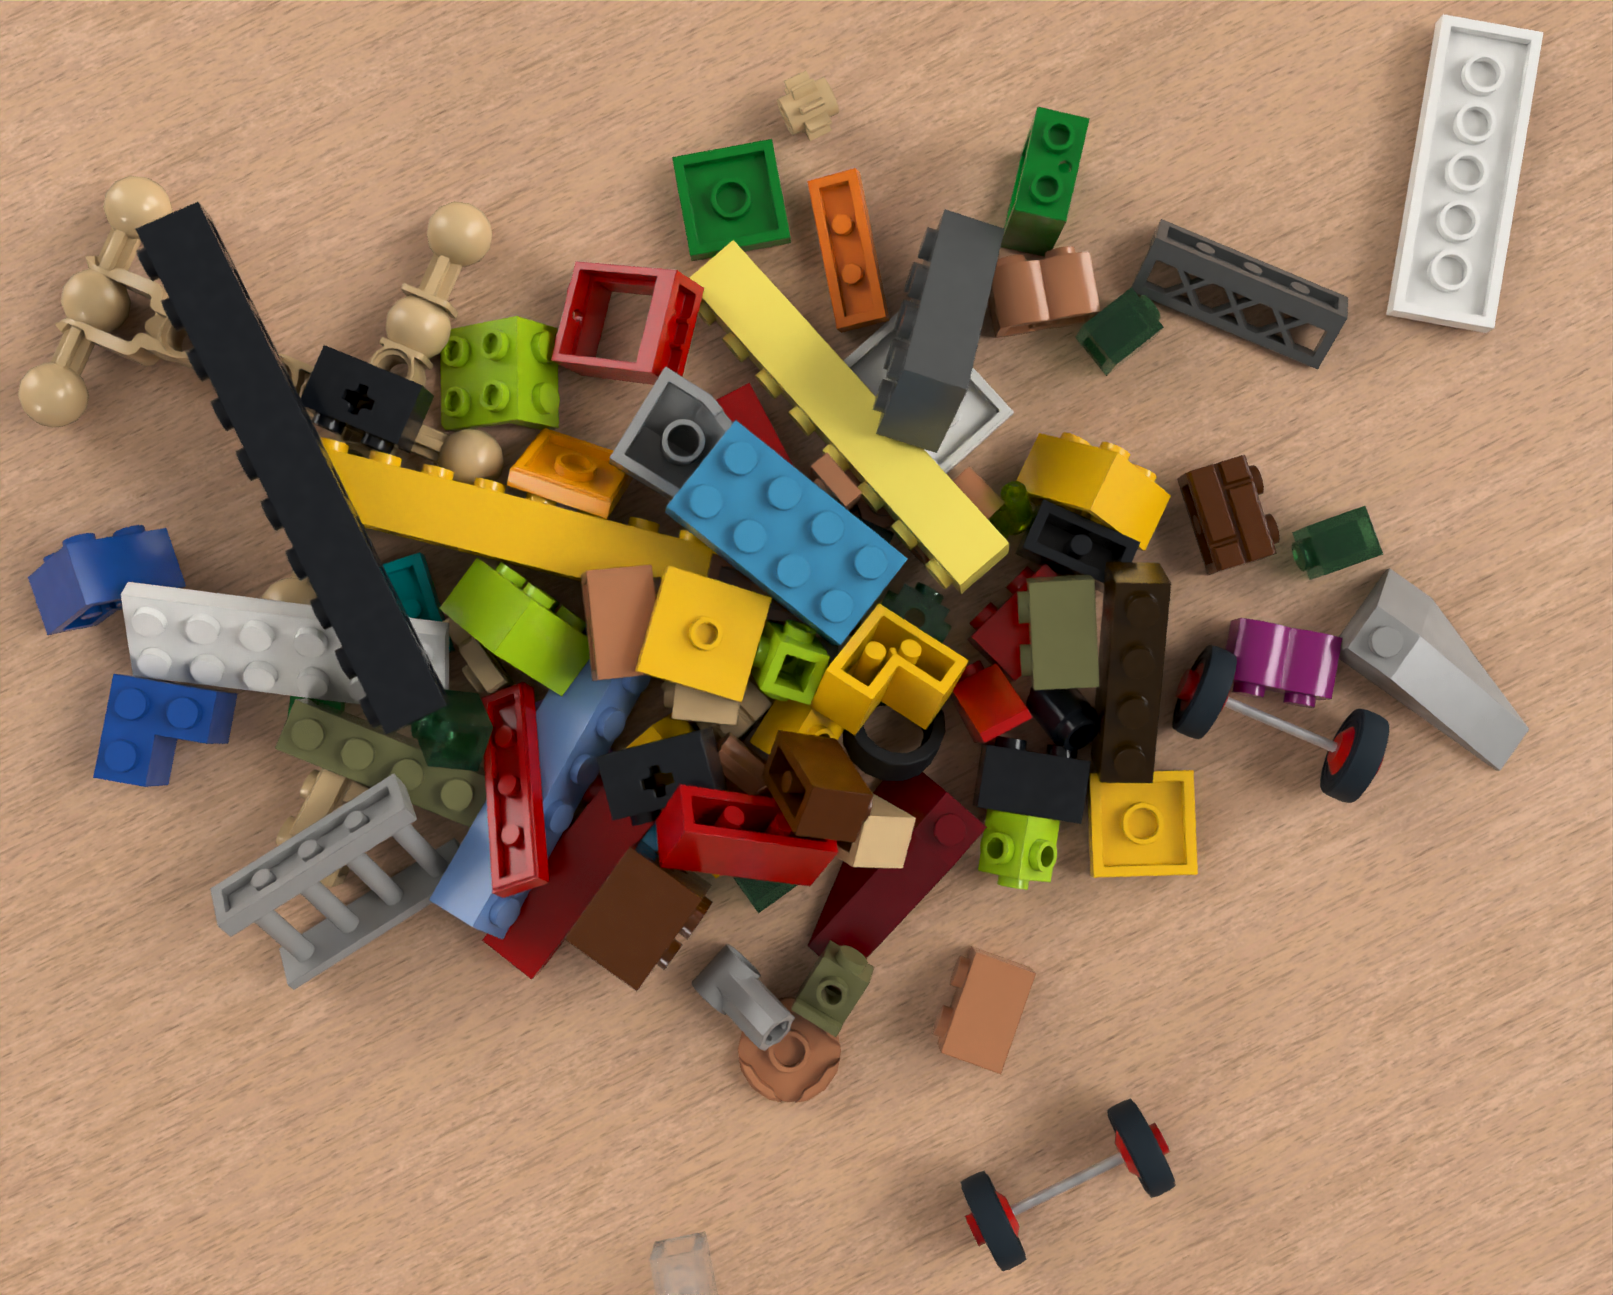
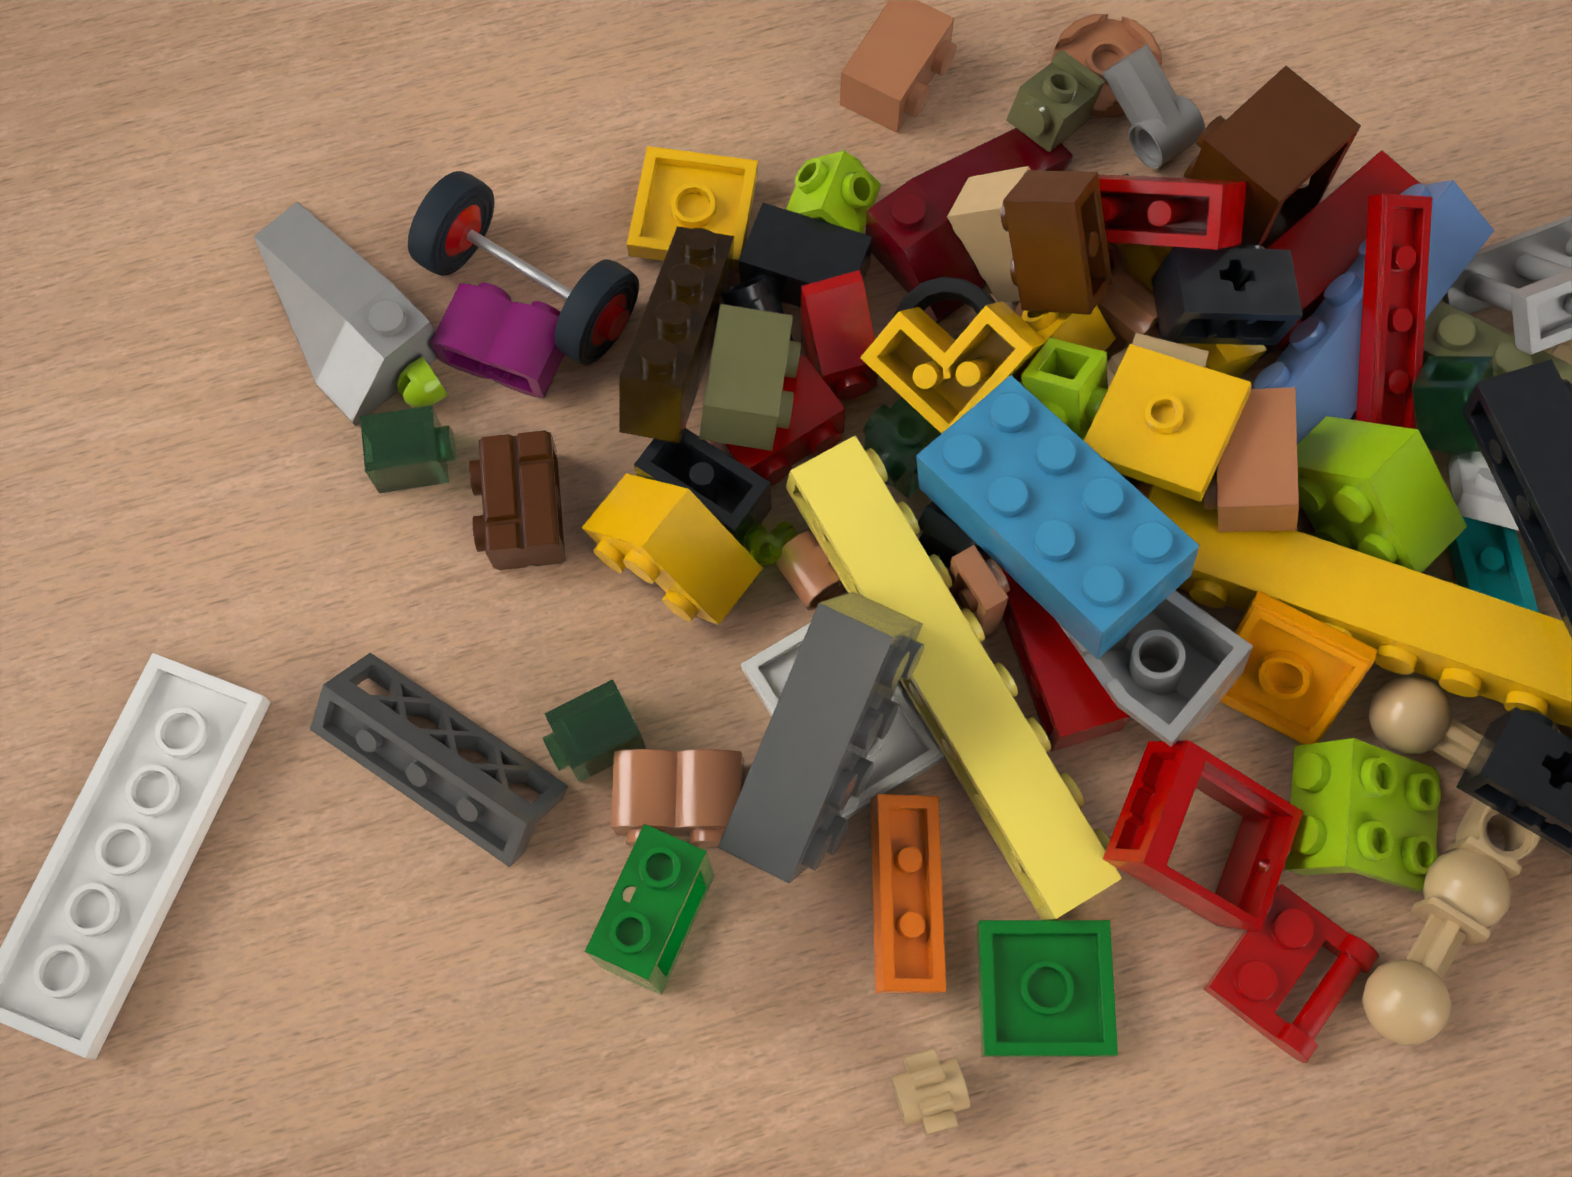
camera: 170 degrees left, 15 degrees down
(569, 239) = (1269, 963): none -> red plate
(1338, 610) = (420, 385): none -> lime hinge

